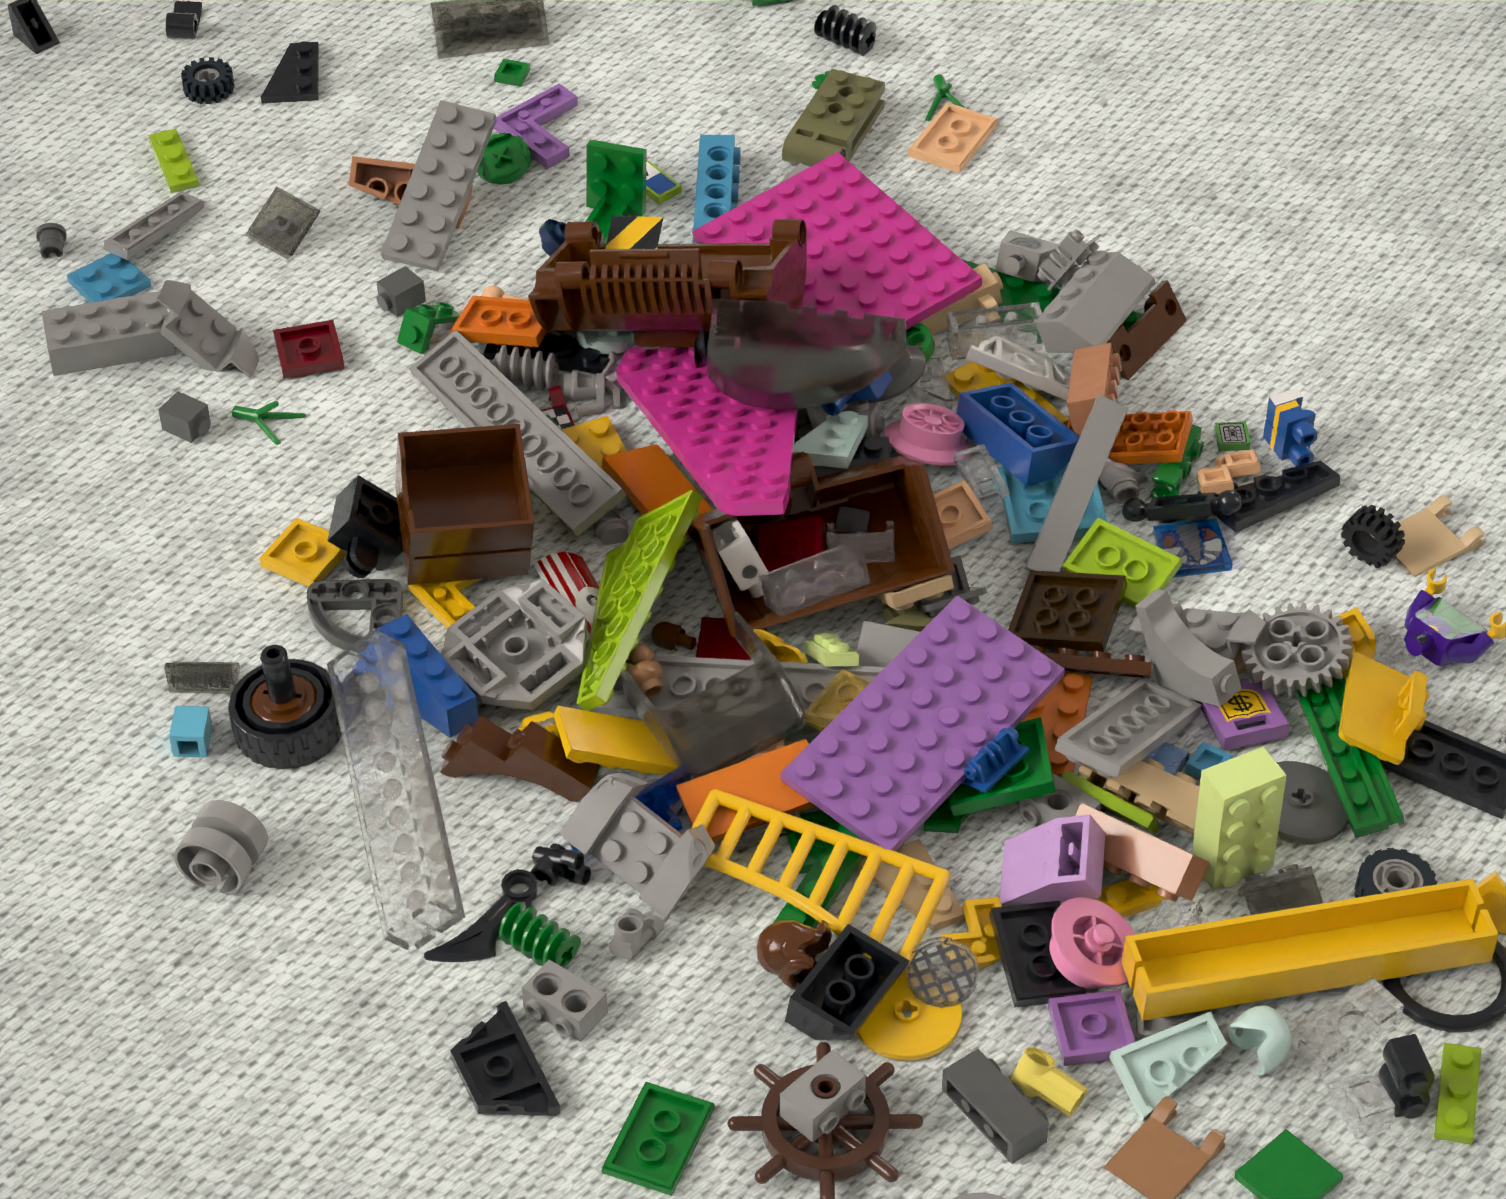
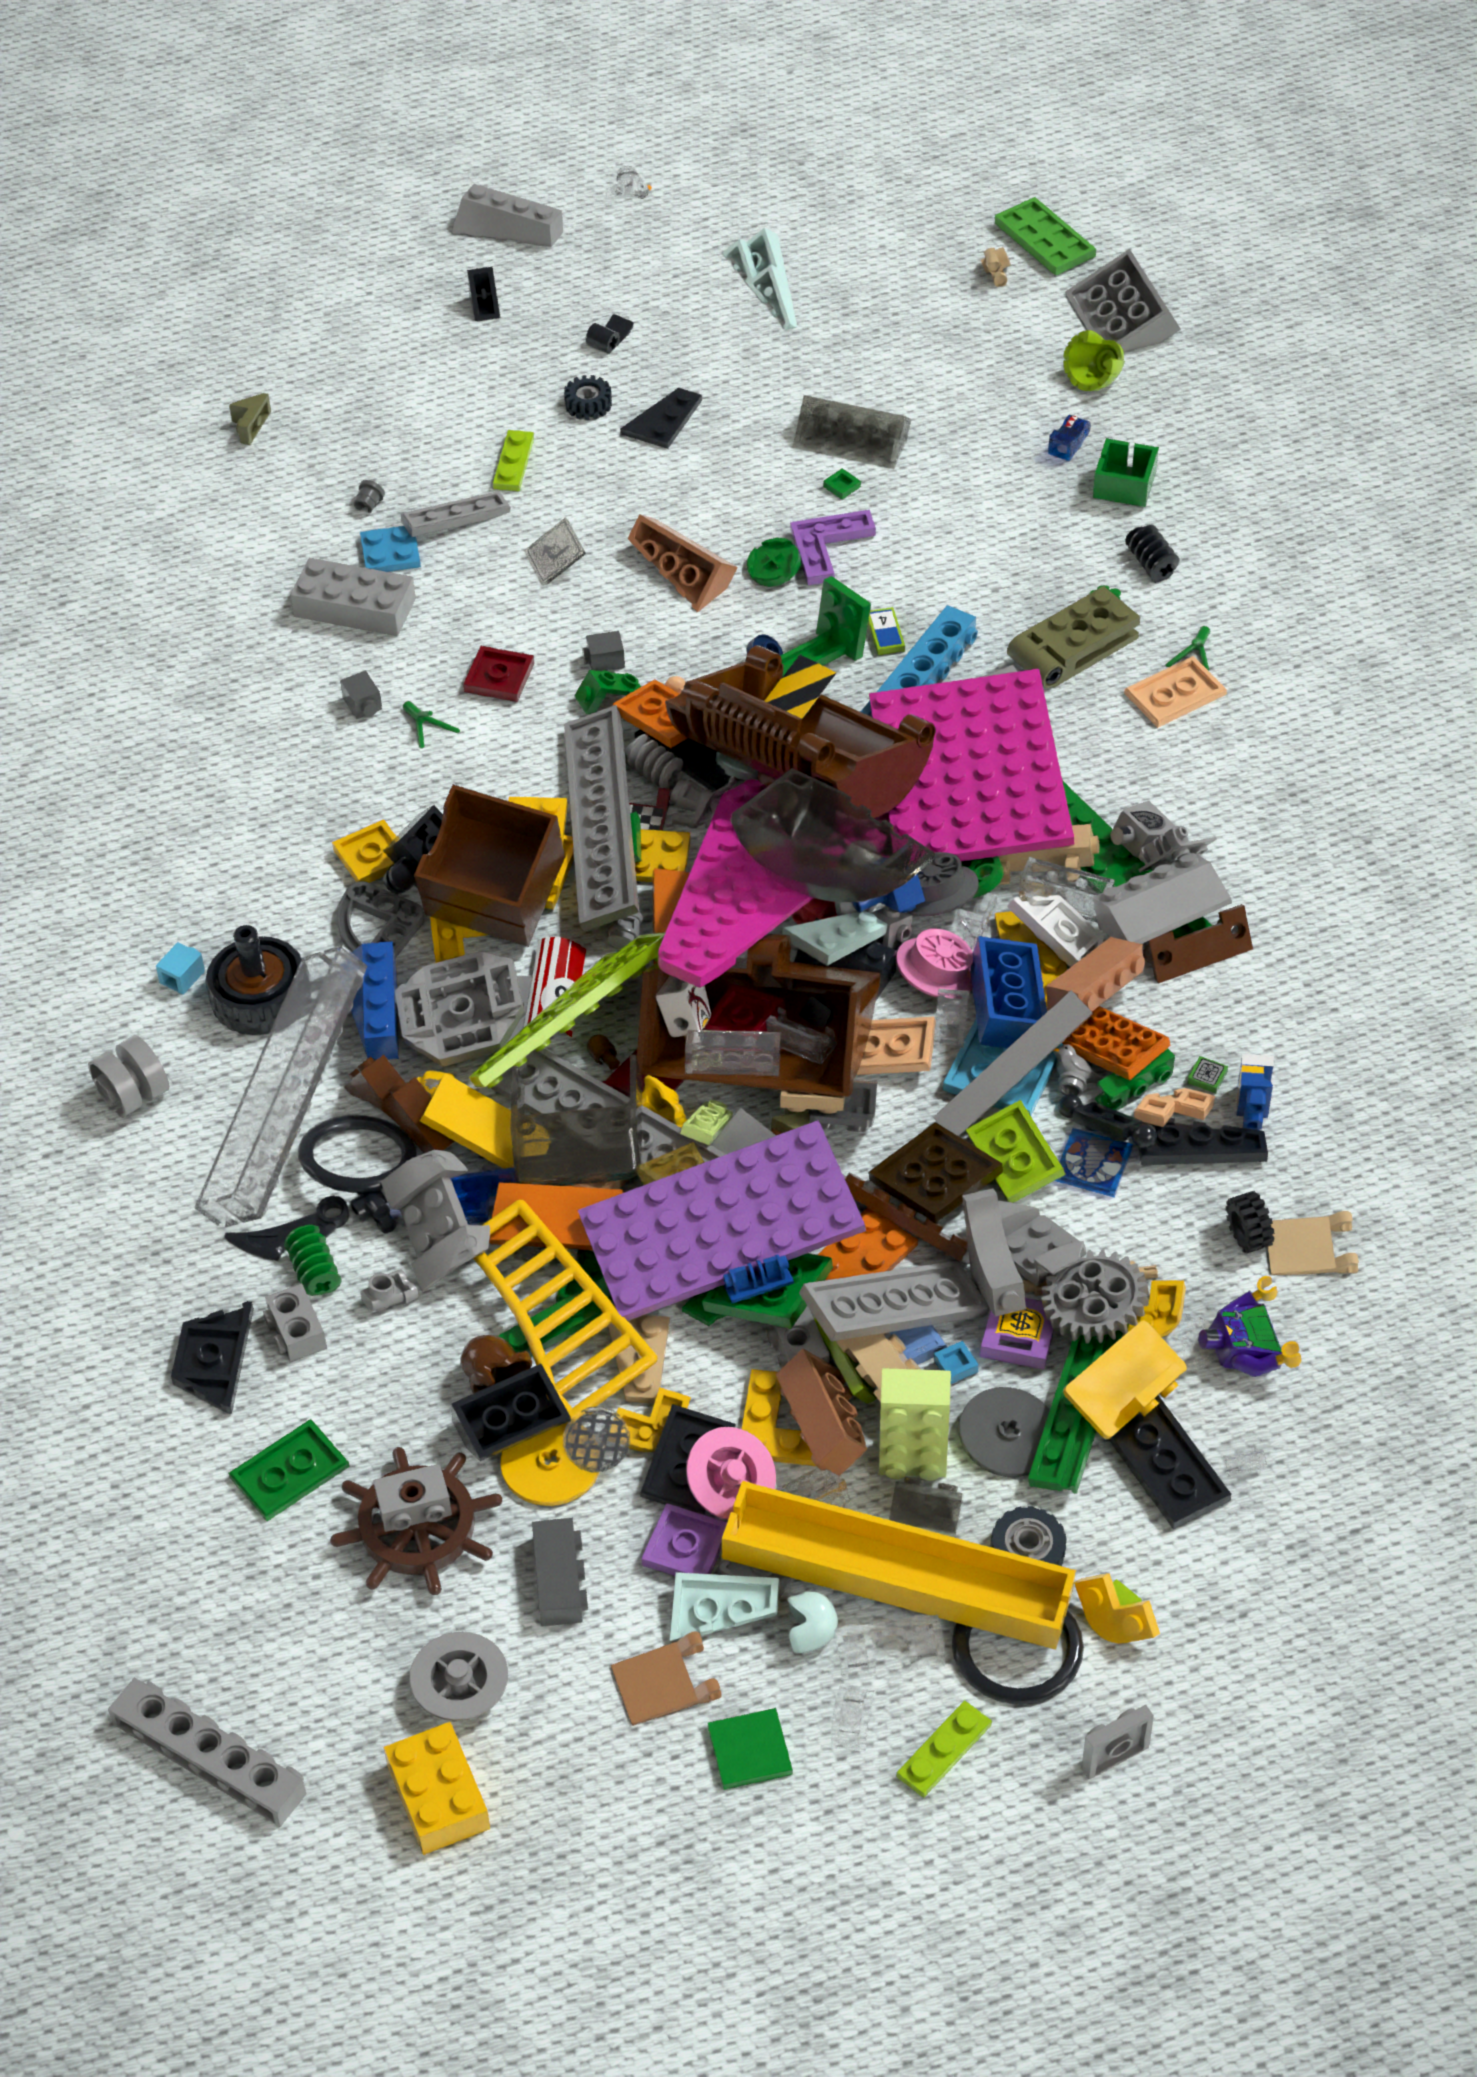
camera: 30 degrees right, 5 degrees up
(202, 677) = (217, 922): clear smoke panel -> none
(203, 331) = (421, 623): light grey piece -> none
(439, 186) = (691, 568): light grey plate -> none
(508, 853) = (351, 1122): none -> black wedge
(645, 671) = (542, 1076): medium nougat animal -> none
(1040, 1078) = (608, 1566): light yellow piece -> none
(1054, 862) = (750, 1391): lavender slope -> none
(1406, 1076) = (898, 1713): black brick -> none

